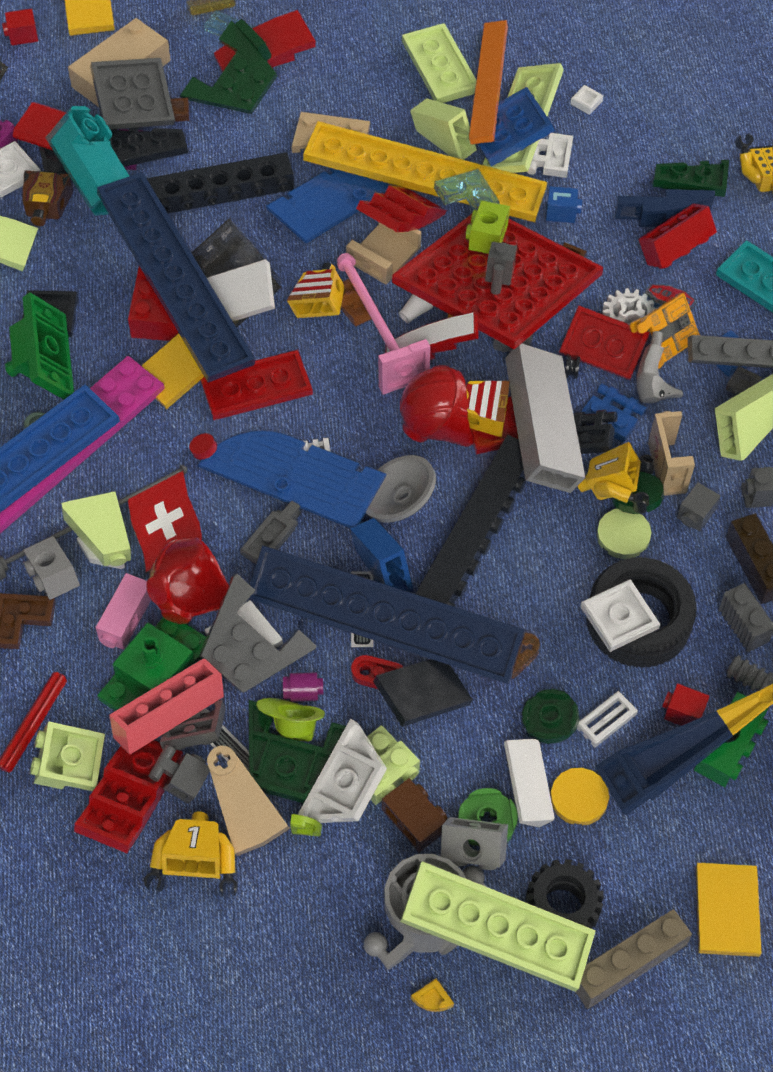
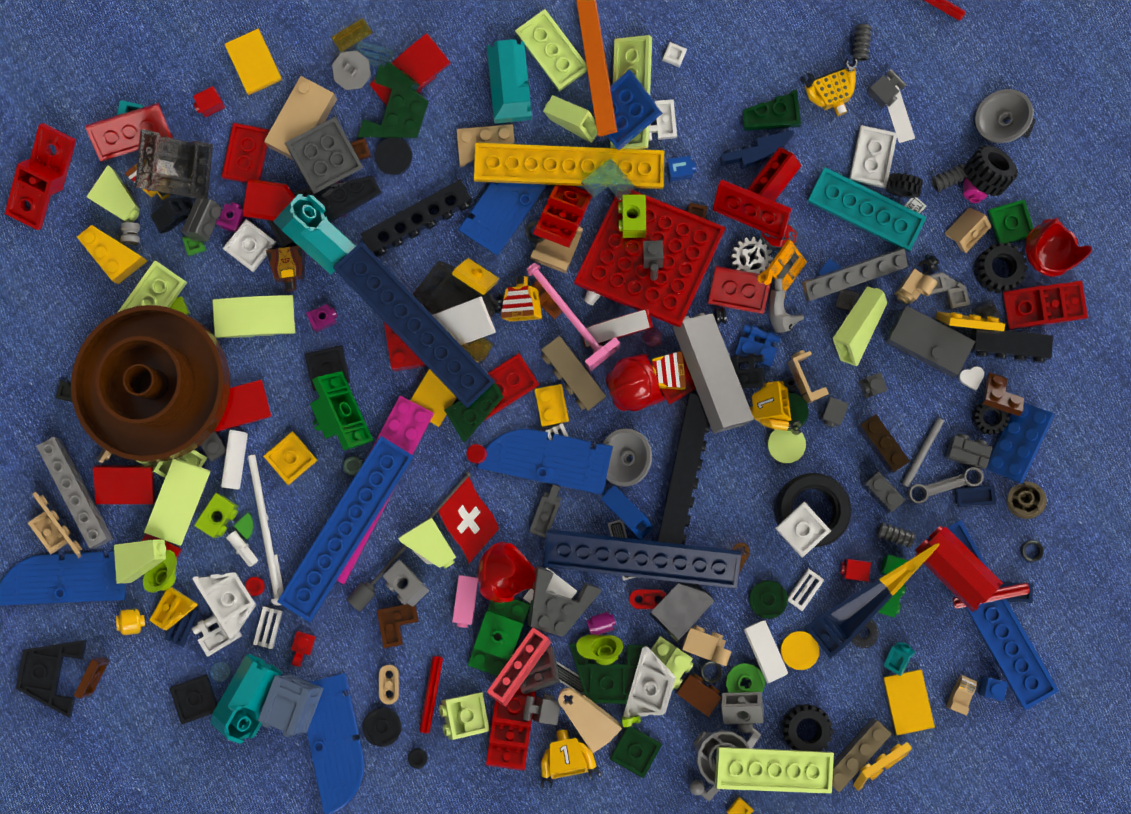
camera: 15 degrees left, 25 degrees up
(43, 83) = (245, 153): none -> red tile
(64, 257) = (321, 324): none -> magenta brick
(197, 34) = (351, 70): none -> light grey piece
(207, 399) = (469, 419): none -> dark green wing
(215, 123) = (393, 156): none -> black tile
(250, 330) = (479, 348): none -> clear yellow bracket
(270, 251) = (475, 276): none -> yellow plate
(283, 293) = (497, 304): none -> black plate
(299, 874) = (635, 751): none -> dark green tile
(320, 417) = (551, 405): none -> yellow plate
(359, 224) = (528, 229): none -> pearl dark grey piece
(360, 386) = (573, 374): none -> dark tan brick
(379, 73) = (509, 81): none -> teal brick
(443, 751) = (706, 645): none -> tan hinge
(443, 780) = (711, 680): none -> pearl dark grey piece
(477, 369) = (652, 337): none -> clear pink tile
(642, 254) = (752, 209): none -> red plate
(654, 983) = (872, 771): none -> yellow wing
(686, 808) = (870, 639): none -> clear smoke piece
(724, 839) = (899, 657): none -> teal bracket

